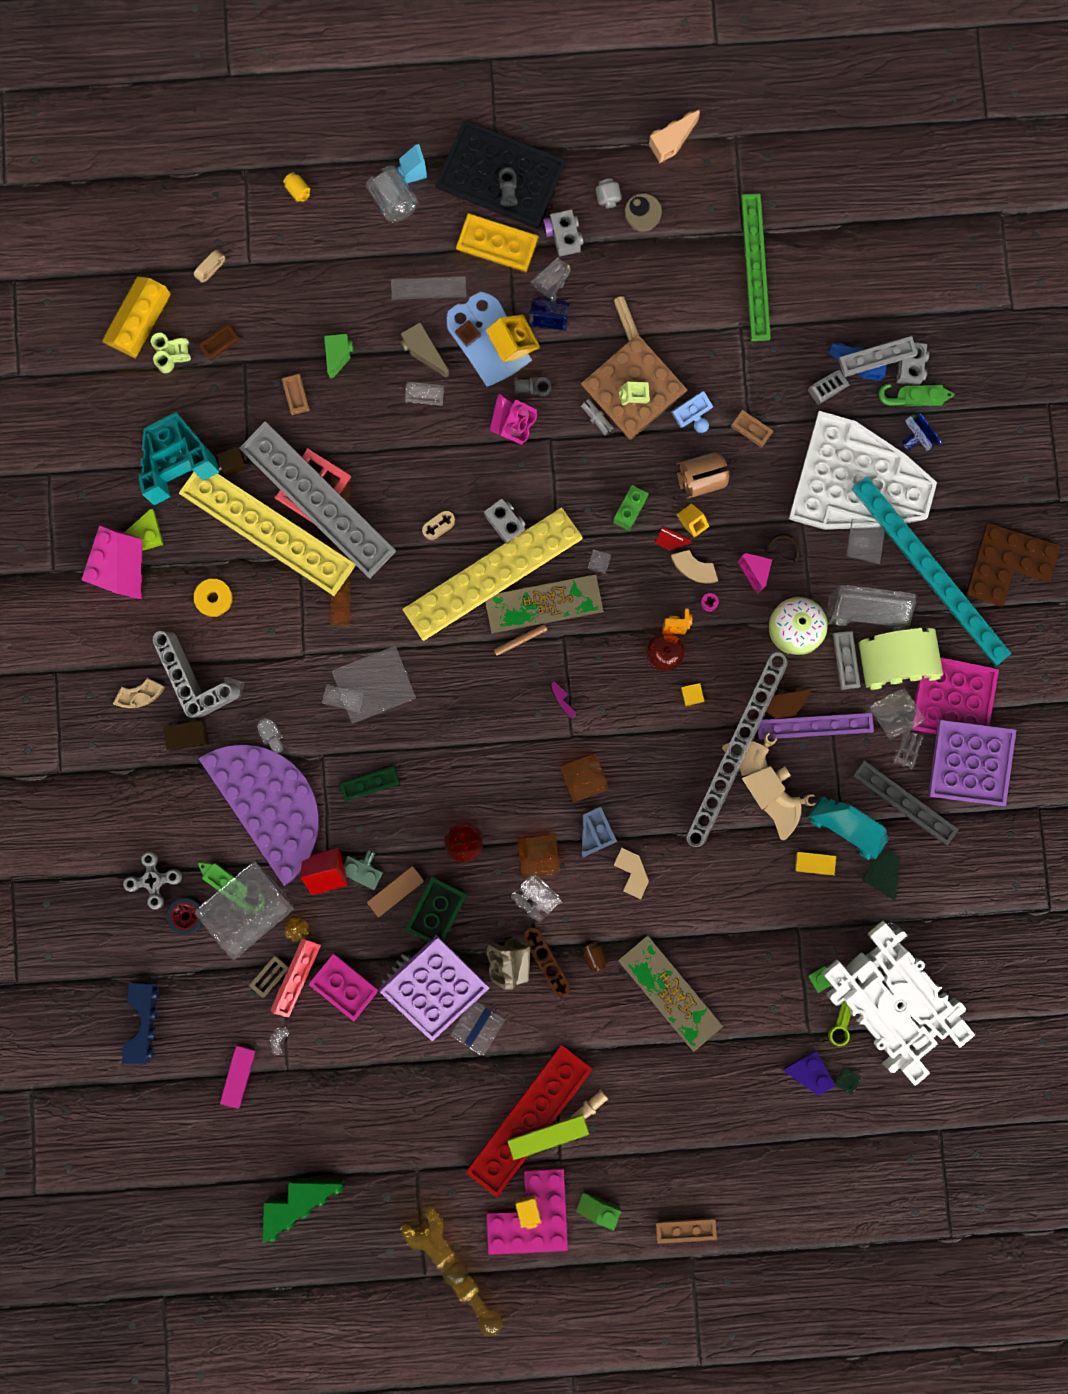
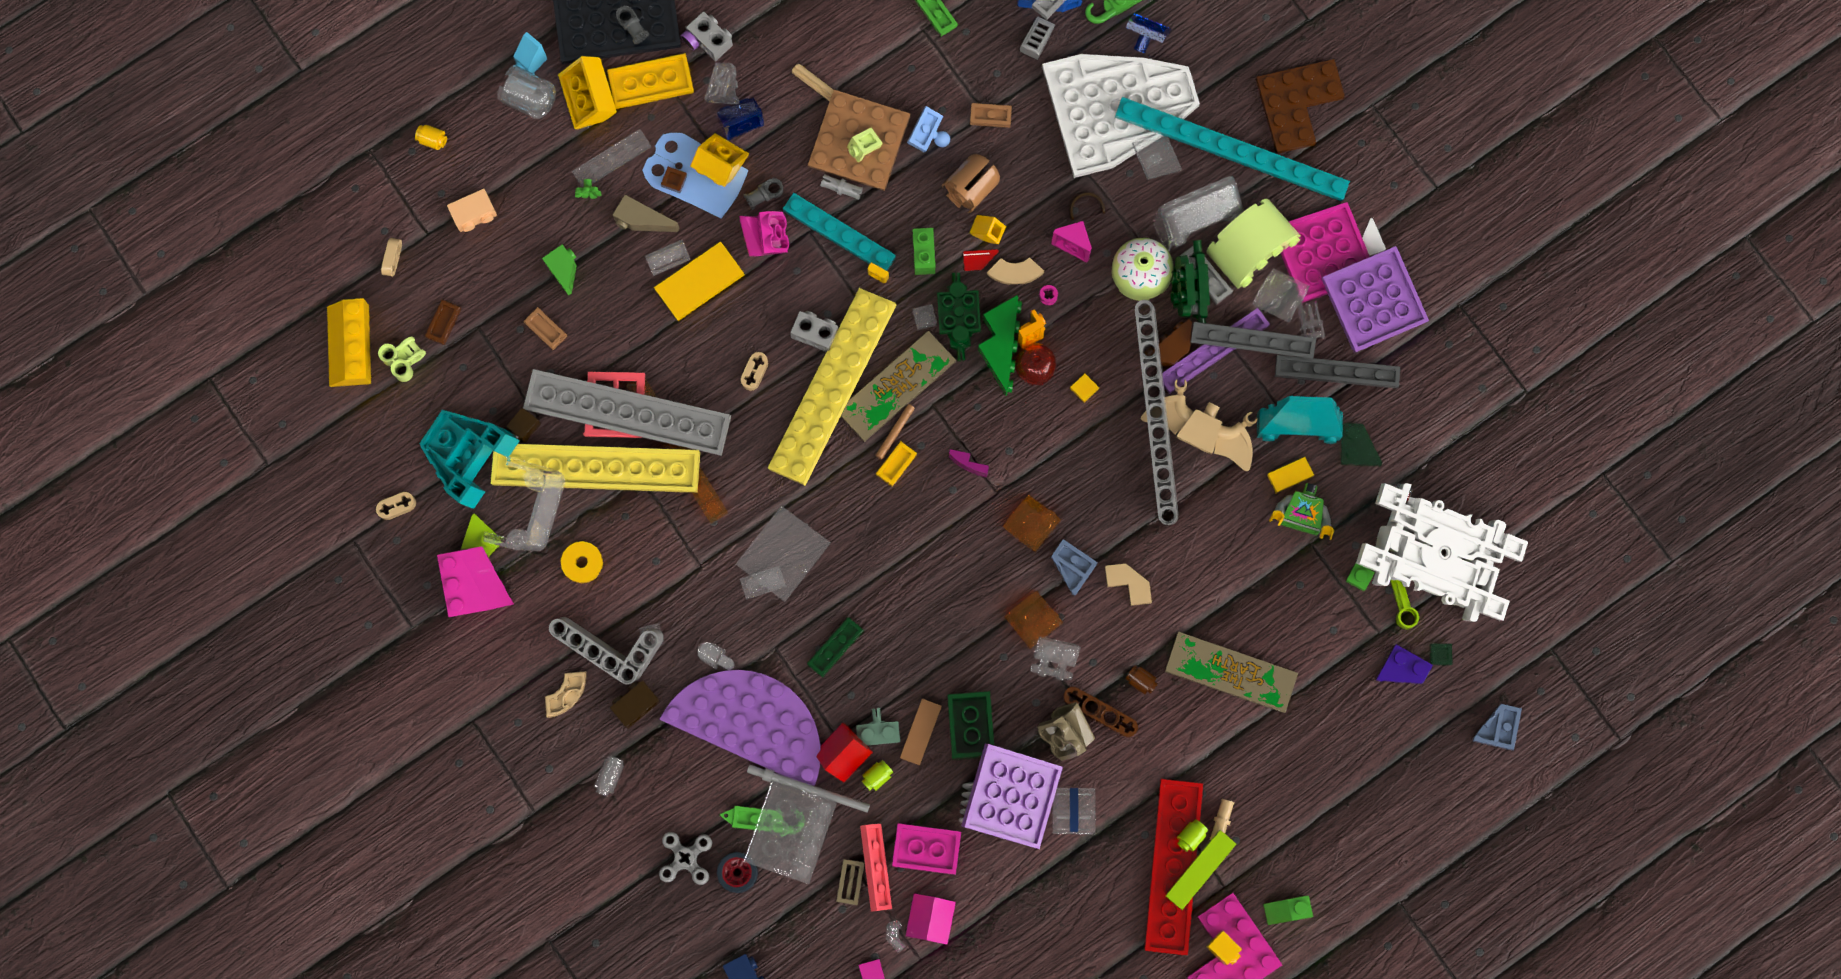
camera: 30 degrees left, 5 degrees down
(96, 462) = (394, 501): none -> tan beam
(132, 779) = (609, 776): none -> clear head
(218, 523) = (550, 487): none -> clear windscreen
(256, 854) = (769, 775): none -> light grey bar
(294, 265) = (472, 210): none -> light nougat brick
(296, 929) = (849, 821): clear yellow gear -> none
(313, 1044) = (930, 918): none -> dark pink slope
(340, 906) = (877, 775): none -> lime brick
(393, 302) = (587, 190): none -> bright green plant
(438, 427) = (699, 281): none -> yellow tile
(441, 222) = (587, 92): none -> yellow slope
(463, 843) = (957, 647): clear red cylinder -> none
(506, 666) = (896, 463): none -> yellow tile
(557, 1106) = (1192, 835): none -> lime brick
(572, 453) = (838, 232): none -> teal plate
(583, 504) = (878, 273): none -> yellow tile
(627, 576) = (959, 315): none -> dark green piece
(644, 622) = (998, 349): none -> green slope
(686, 1230) = (1378, 879): medium nougat plate -> none
(807, 901) = (1304, 512): none -> torso
(828, 663) = (1191, 284): none -> dark green piece
(851, 737) = (1253, 340): none -> dark grey plate
(859, 1169) = (1500, 728): none -> sand blue wing
(1001, 711) = (1373, 239): none -> white sticker

